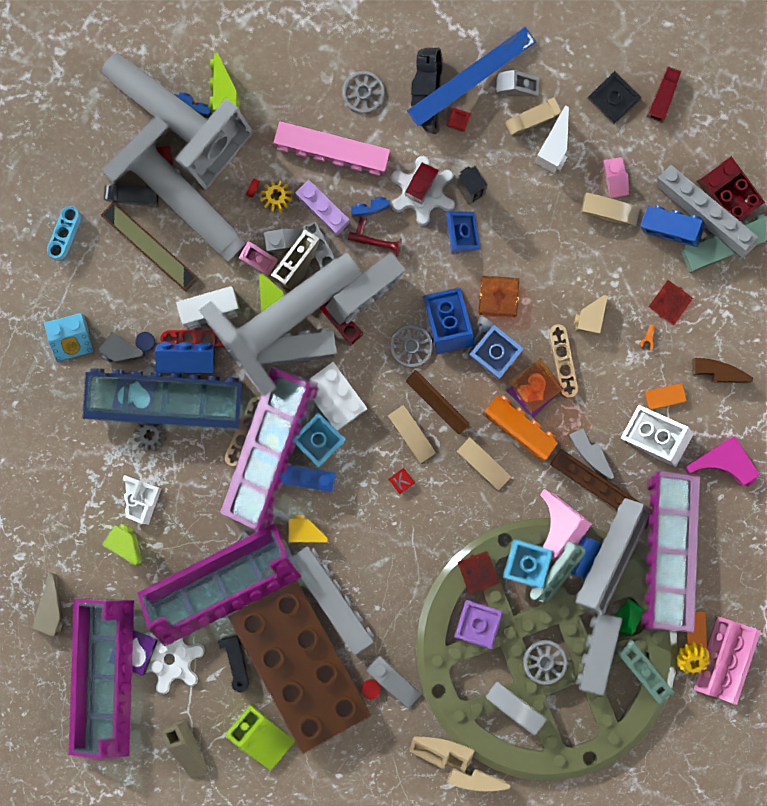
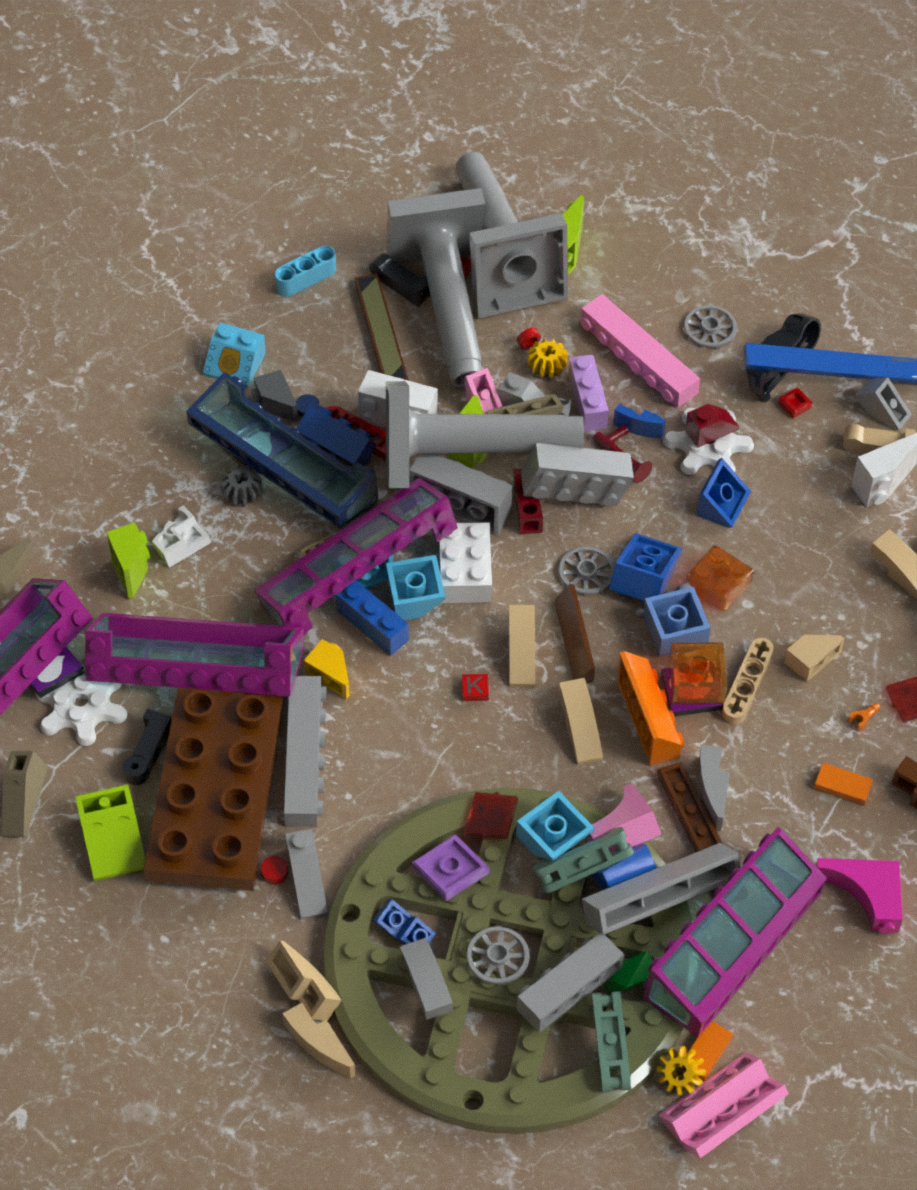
camera: 35 degrees right, 30 degrees down
(471, 184) = (765, 449): black brick -> none
(474, 675) = (401, 924): none -> blue slope
(657, 435) = (807, 814): white slope -> none

